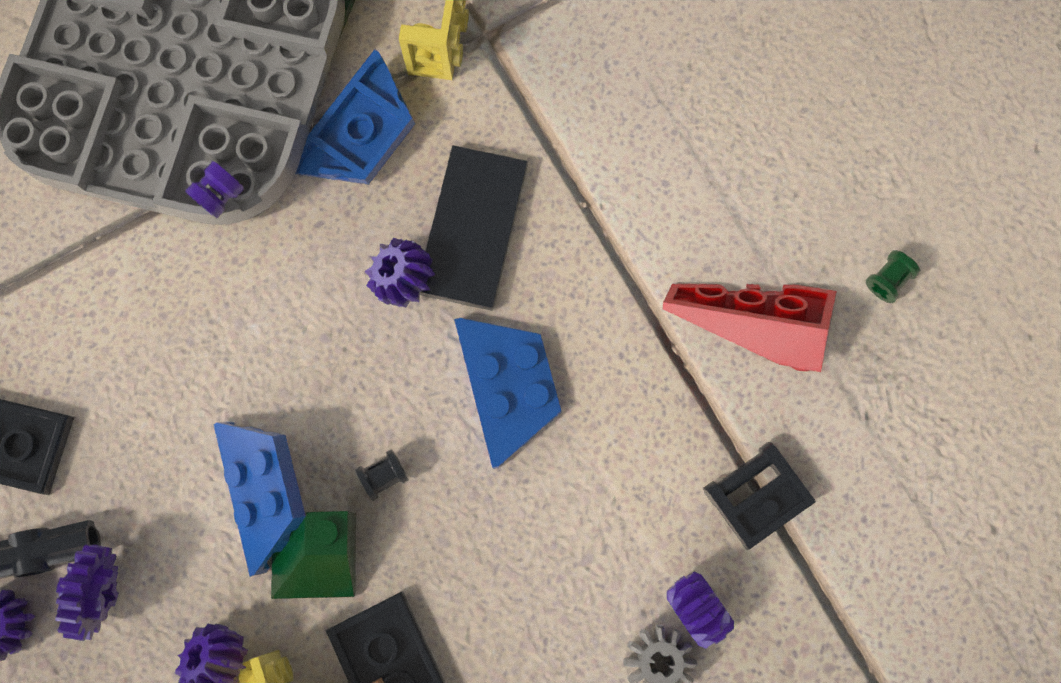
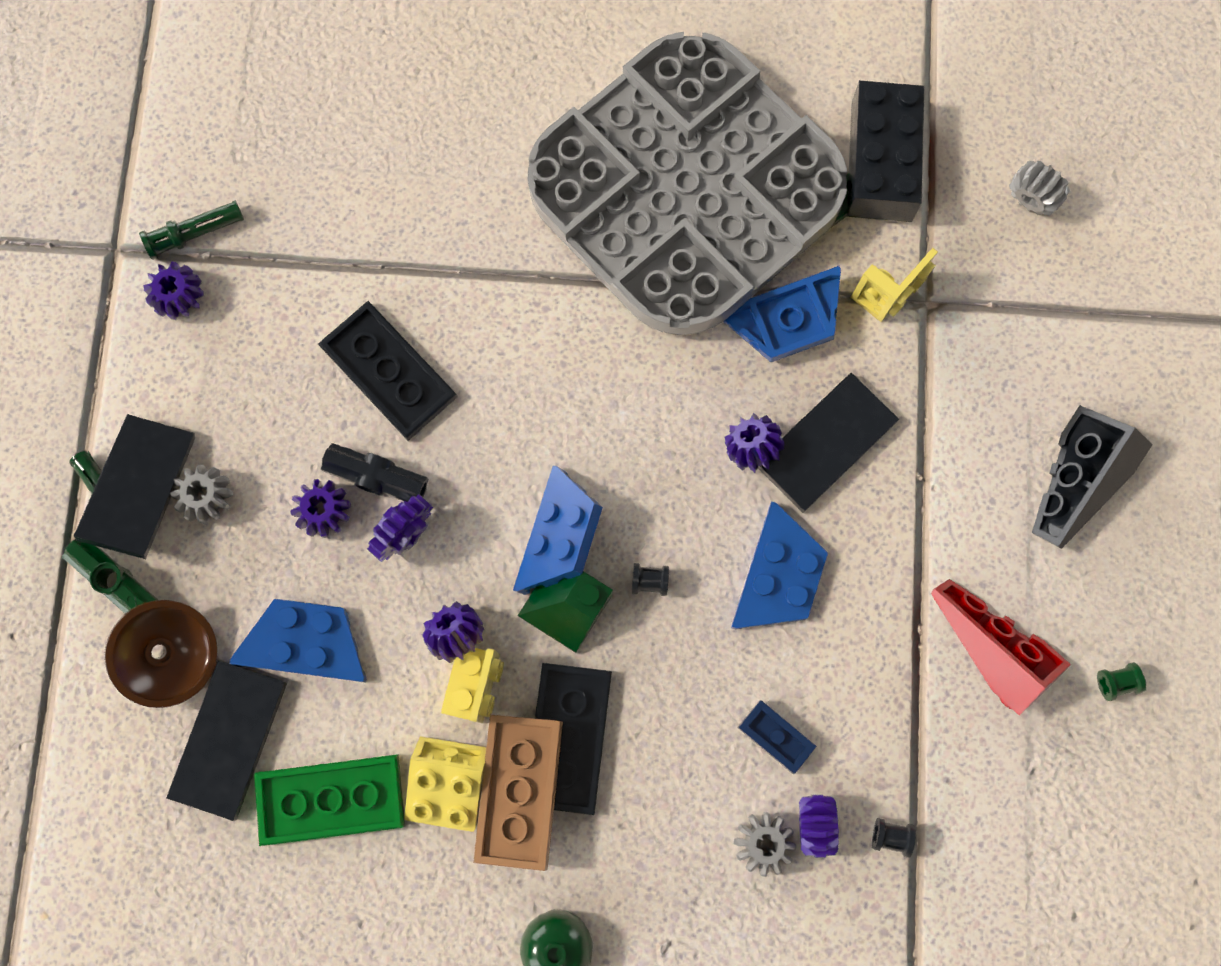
camera: 30 degrees right, 0 degrees up
(221, 183) = (670, 301): dark purple wheel -> none
(605, 547) = (776, 737): none -> dark blue plate
(736, 92) = (1090, 468): none -> black wedge
(768, 506) = (914, 787): black plate -> none
(779, 570) = (894, 837): none -> black bush

